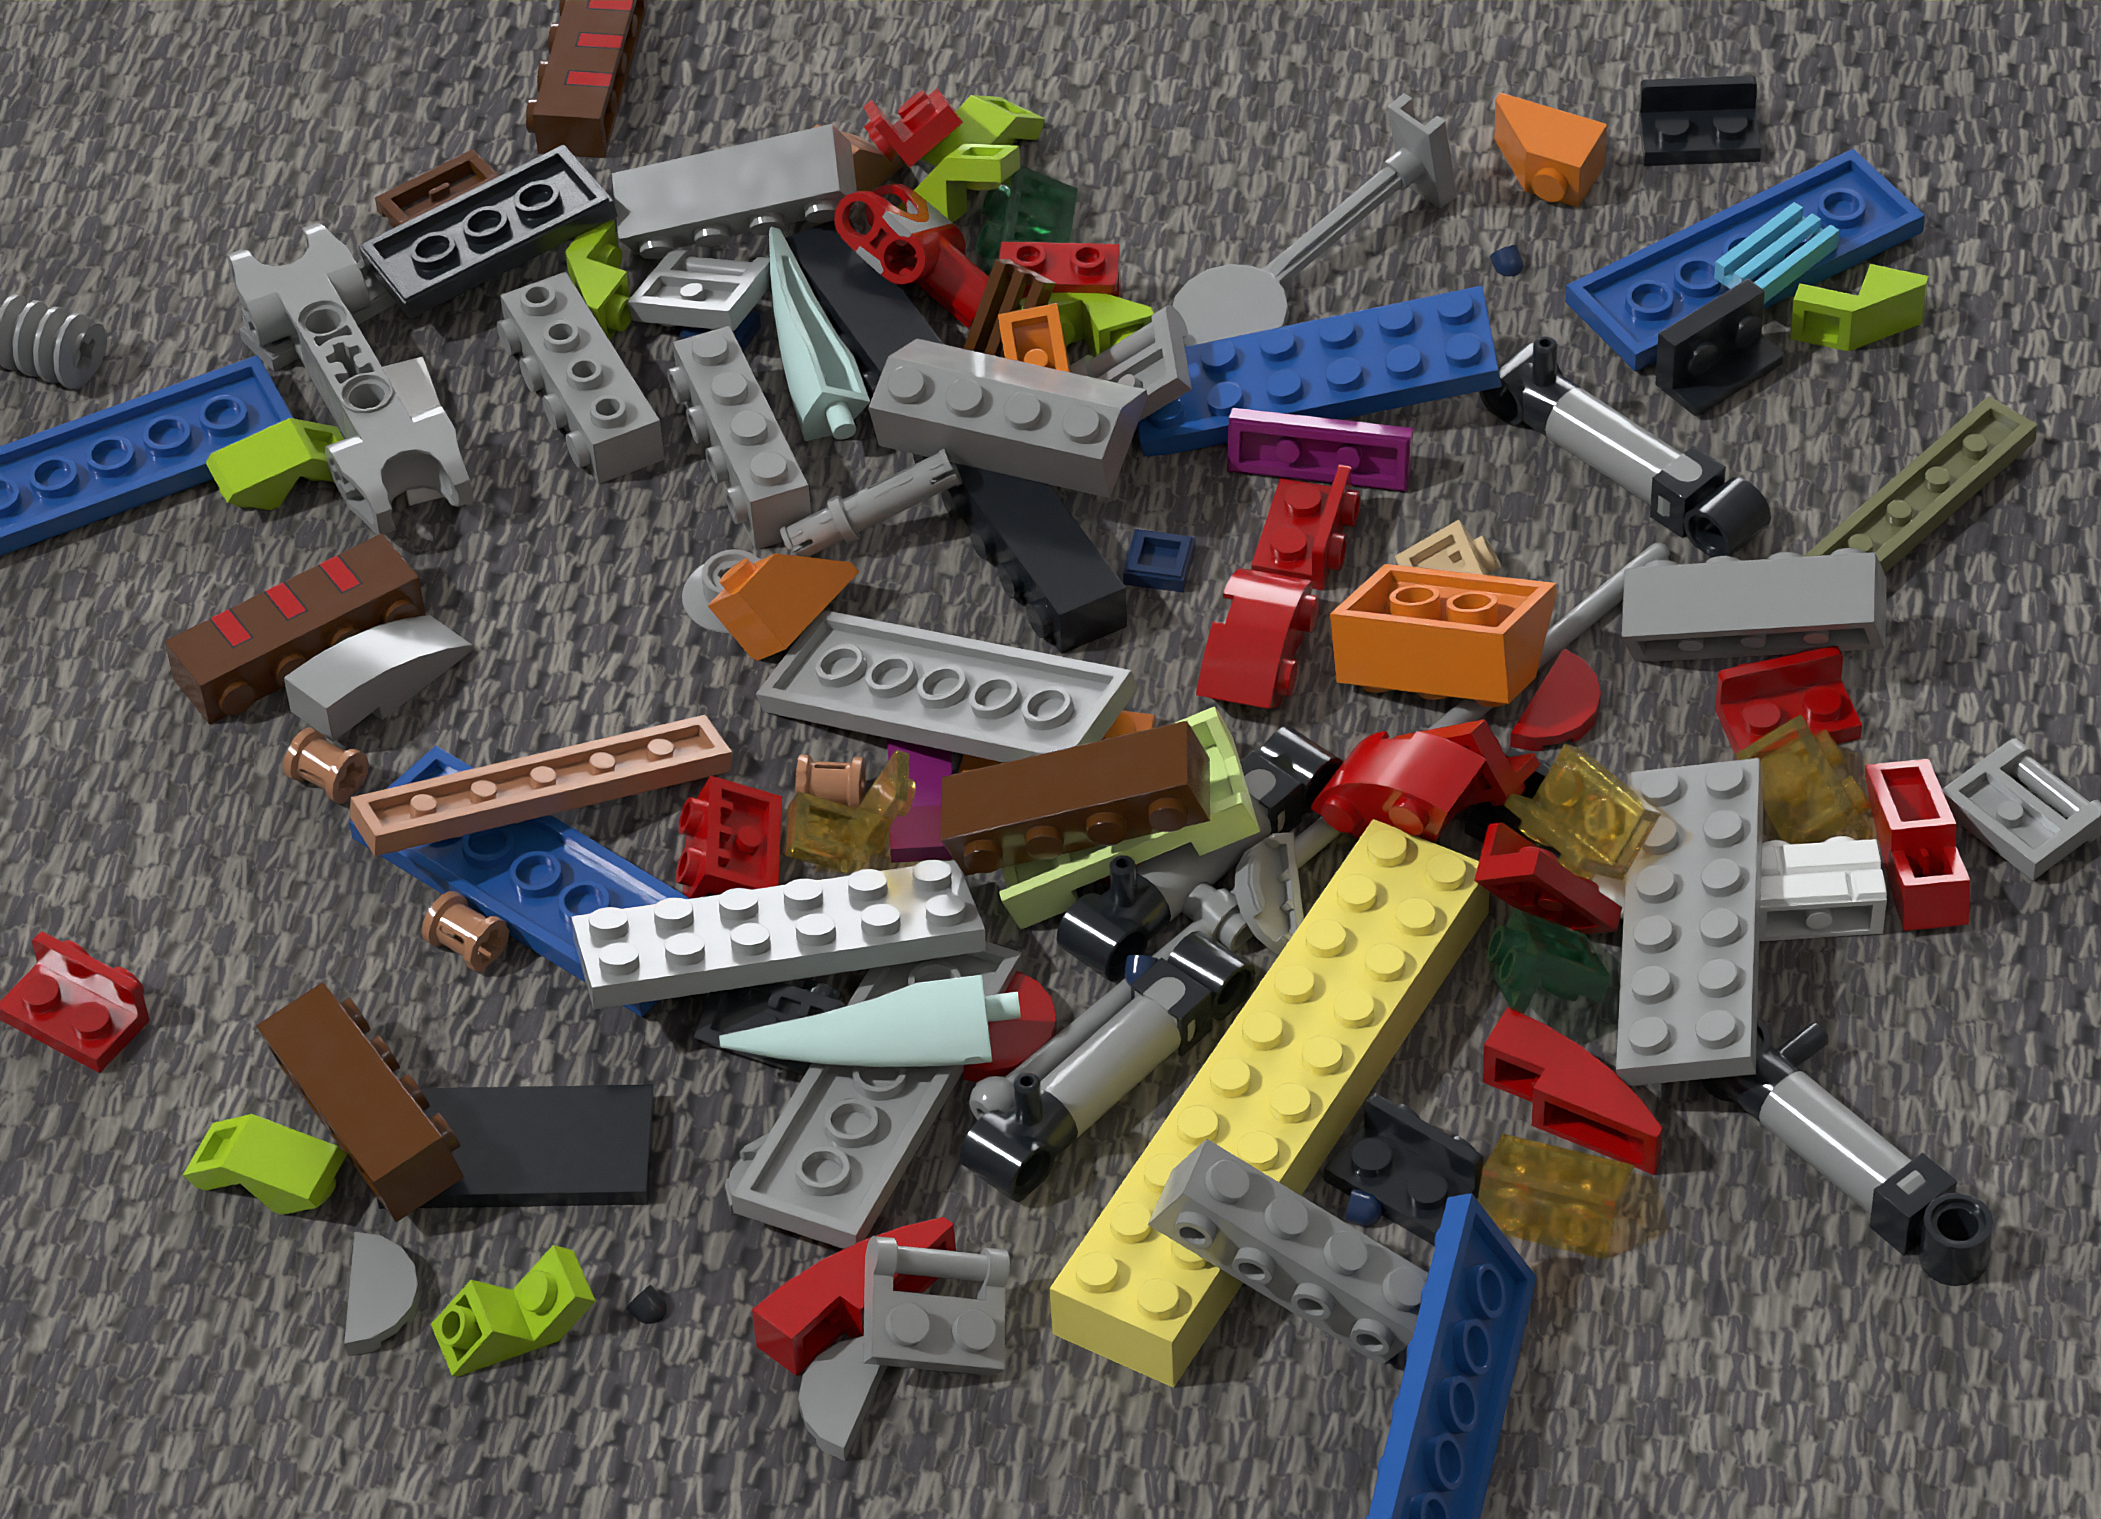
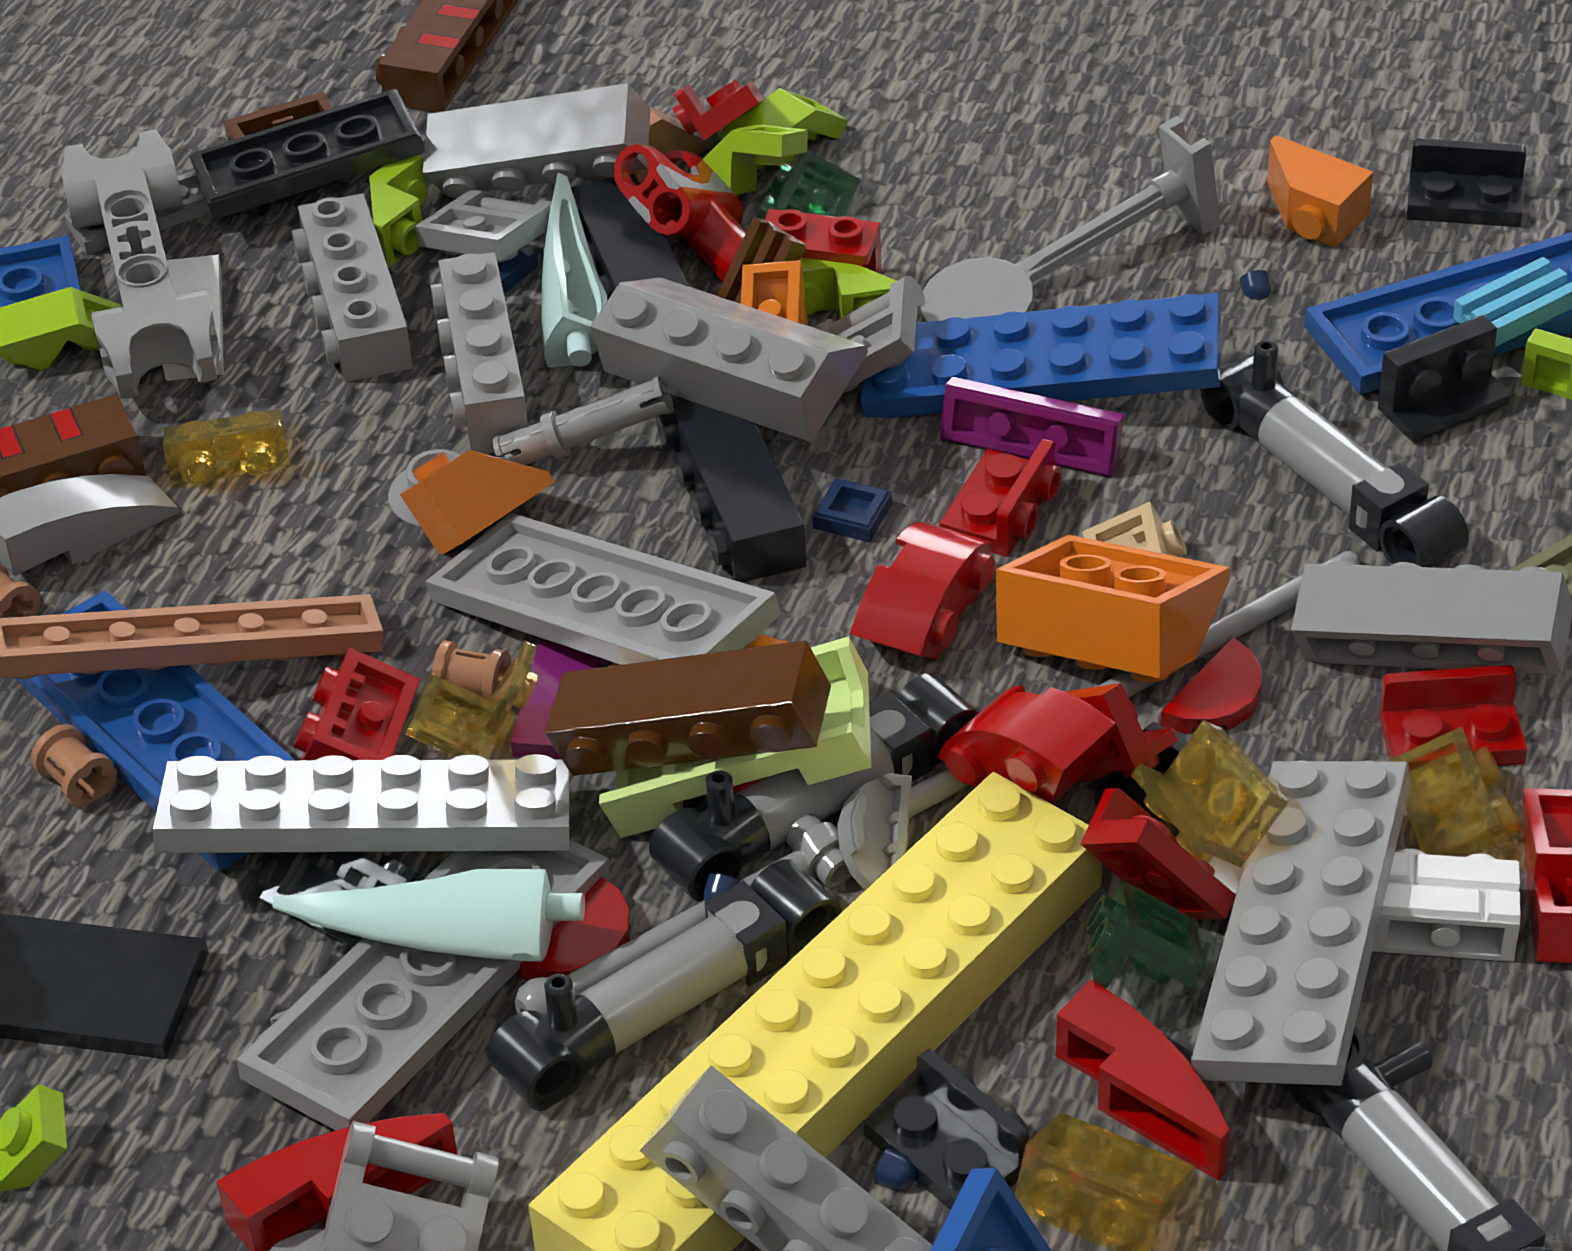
camera: 10 degrees right, 5 degrees down
(503, 573) = (226, 448): none -> clear yellow bracket
(648, 1306) = (129, 1162): black piece -> none

